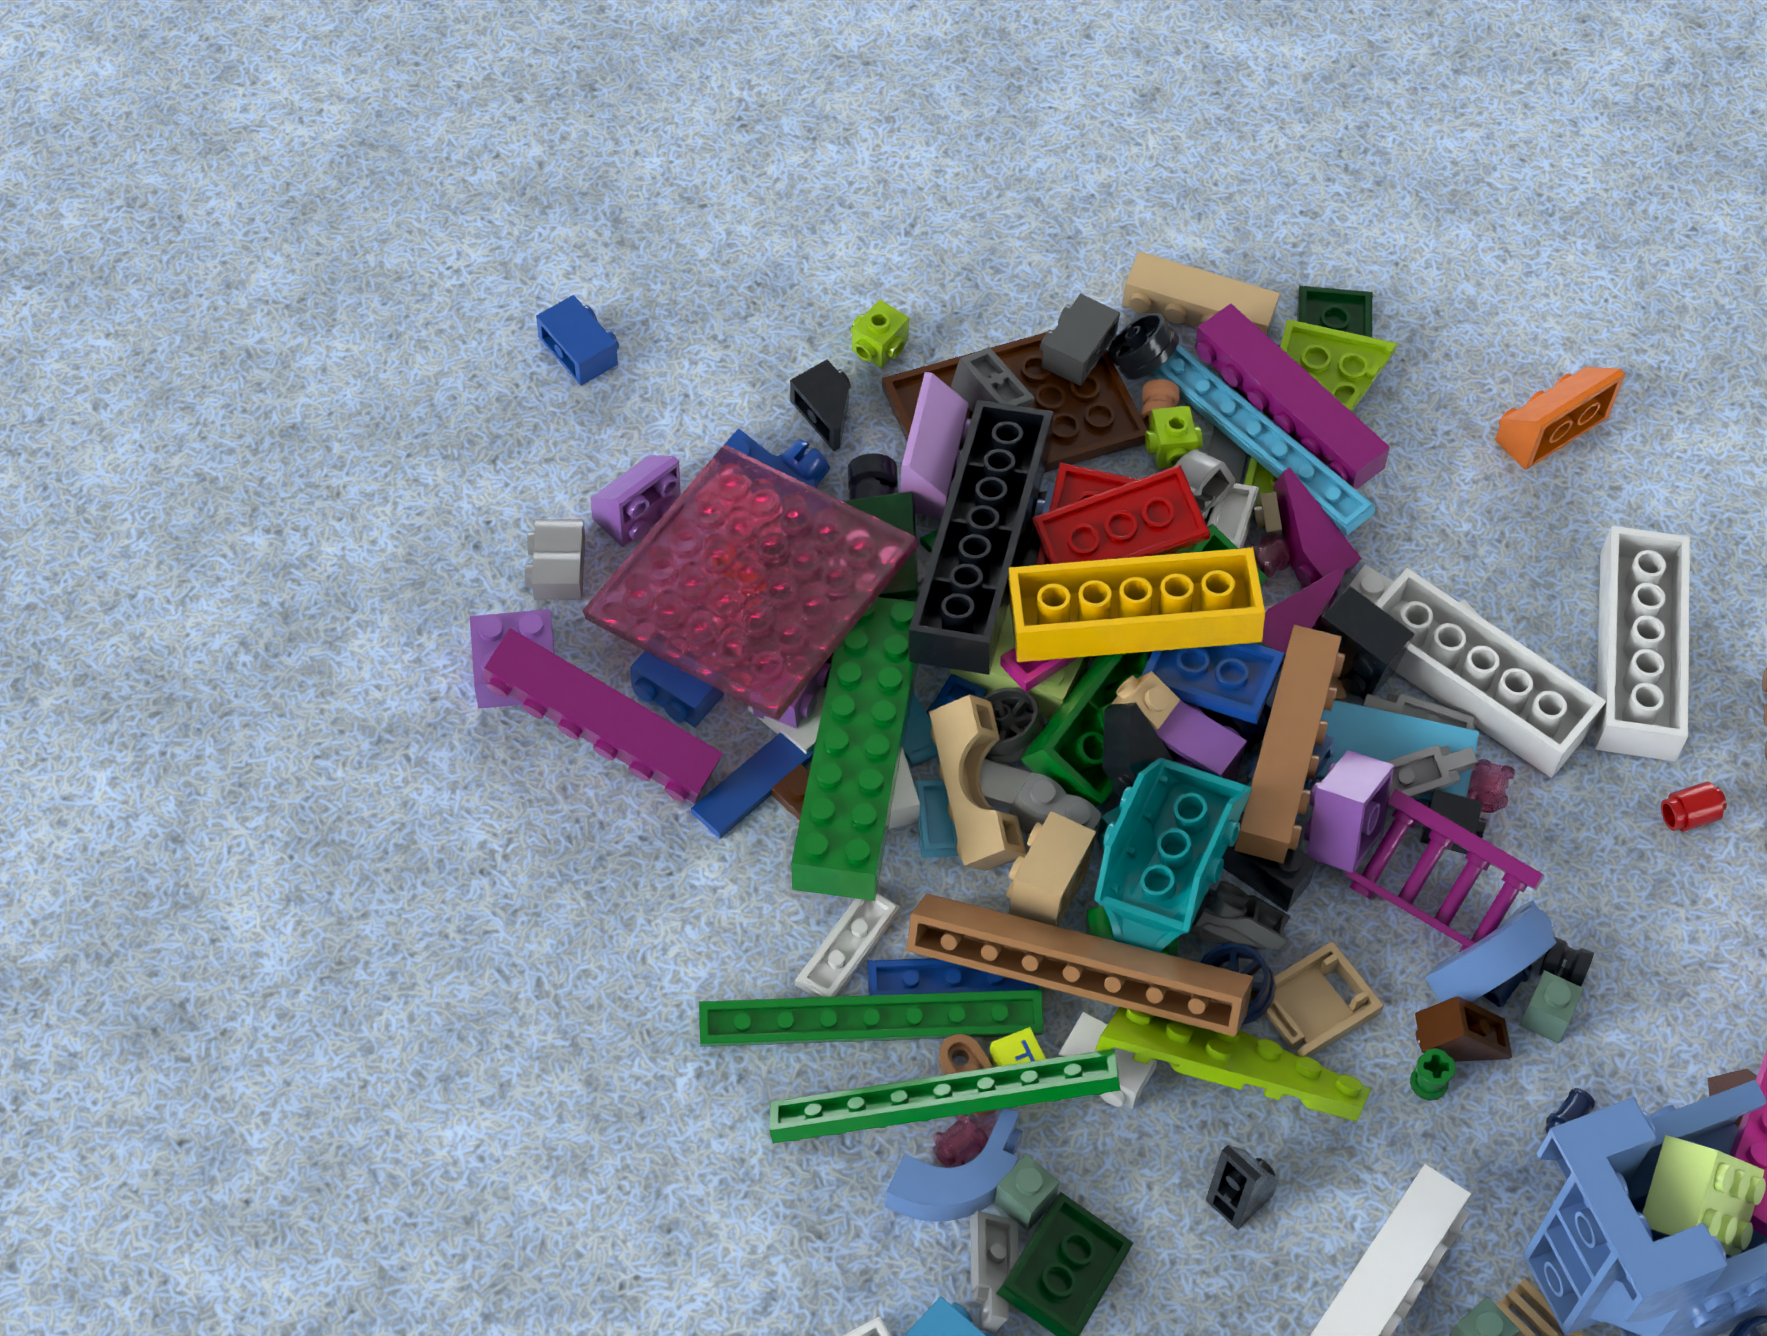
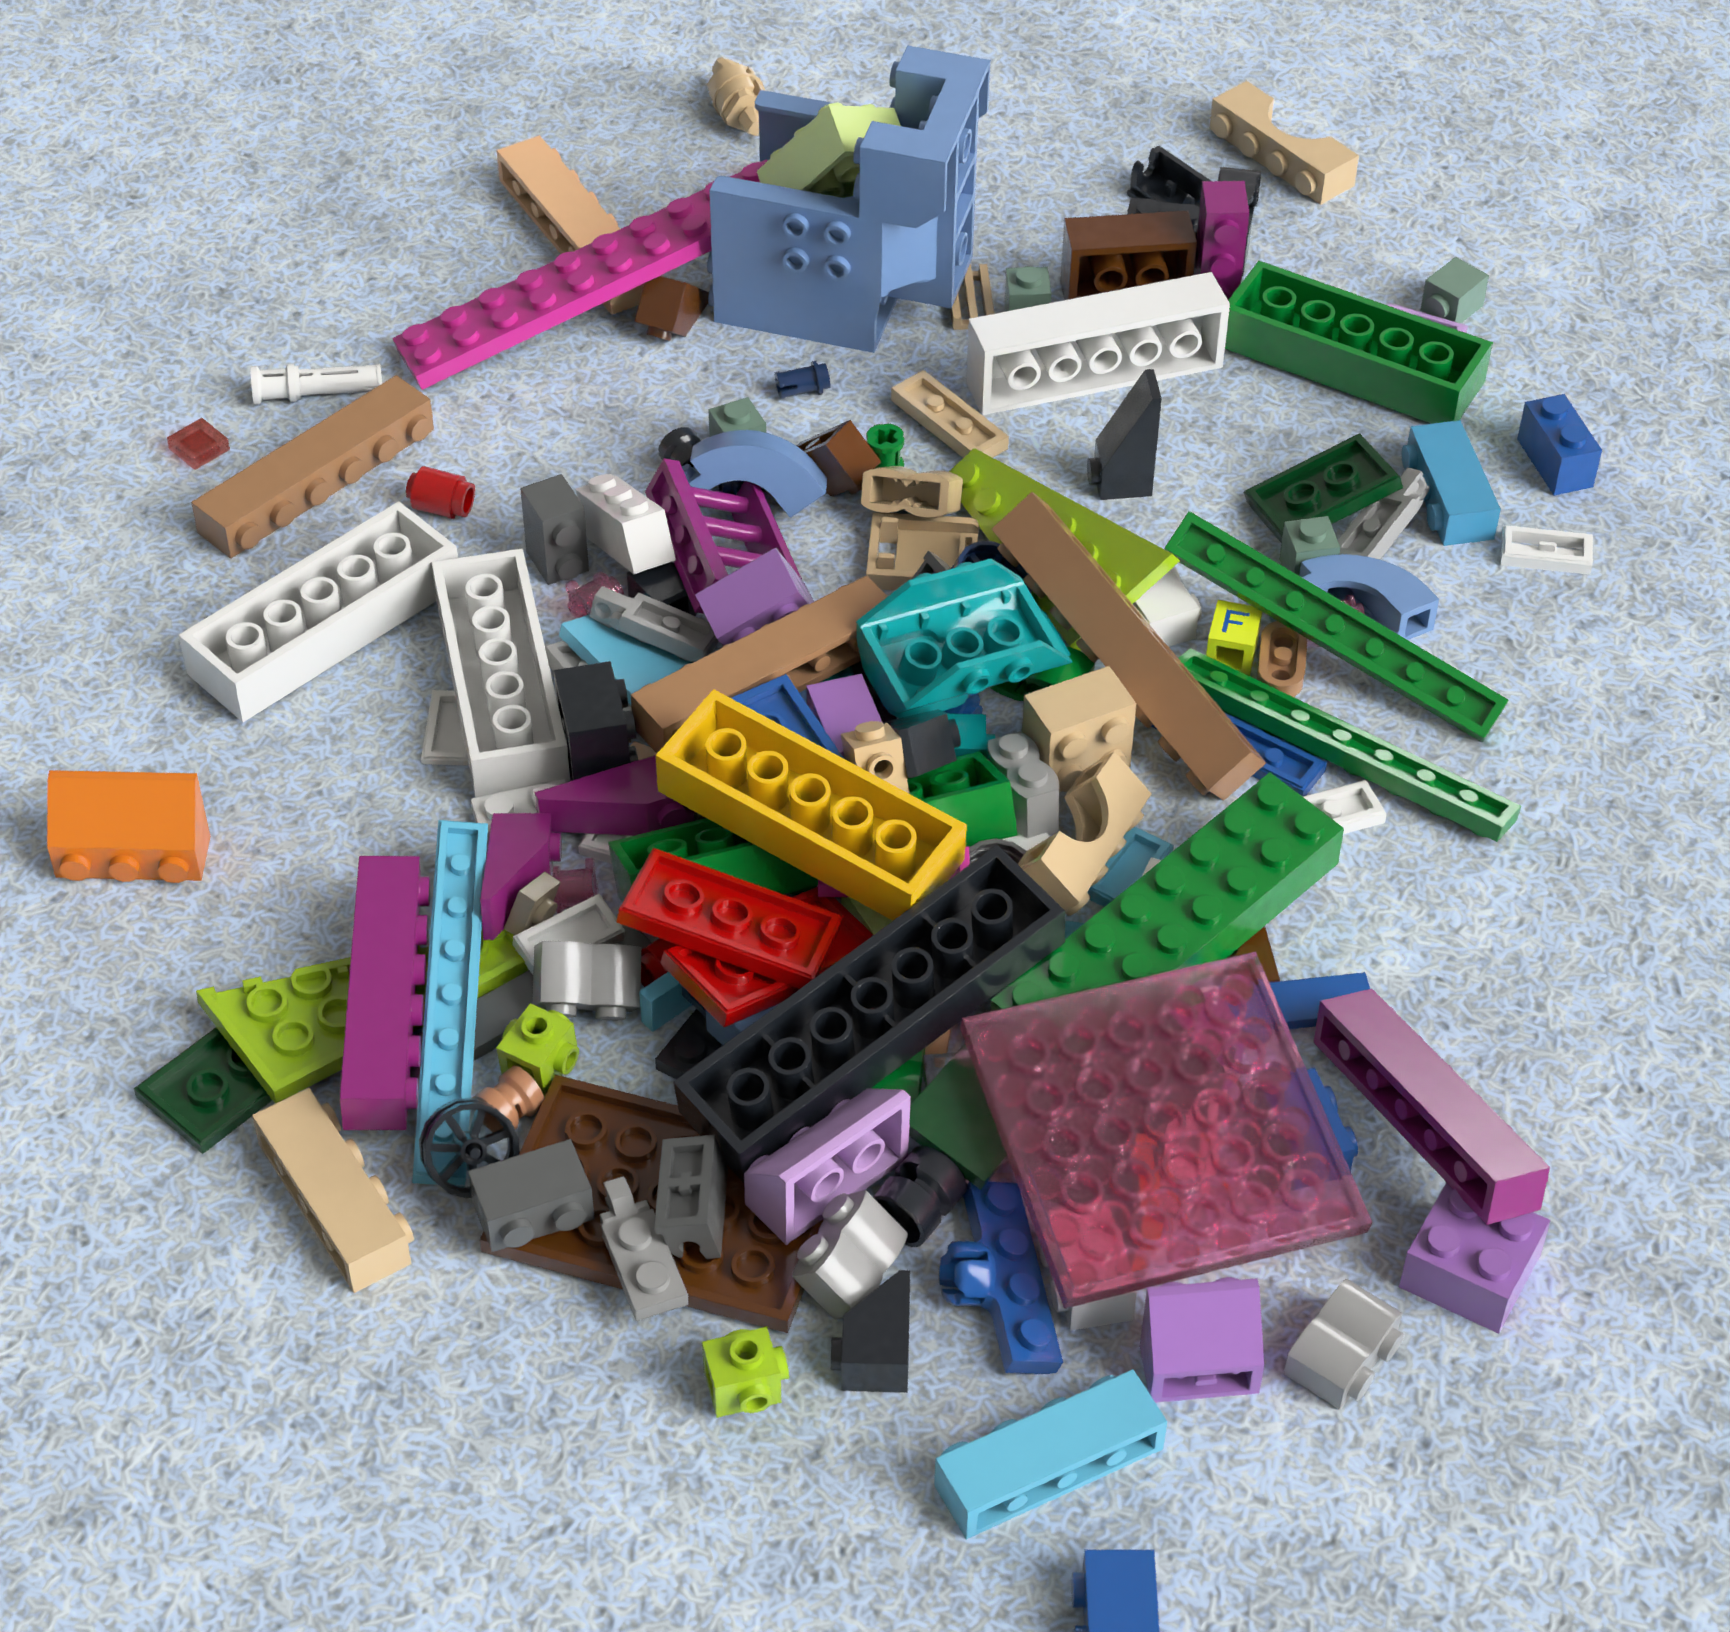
camera: 140 degrees left, 10 degrees down
(680, 396) = (1049, 1452): none -> medium azure brick
(879, 422) = (848, 1252): none -> light grey brick
(971, 338) = (640, 1254): none -> light grey hinge
(1368, 1032) = (918, 493): none -> tan brick
(1407, 1150) = (948, 416): none -> tan plate
(1527, 833) = (625, 523): none -> white brick
(1567, 802) = (555, 529): none -> dark grey brick

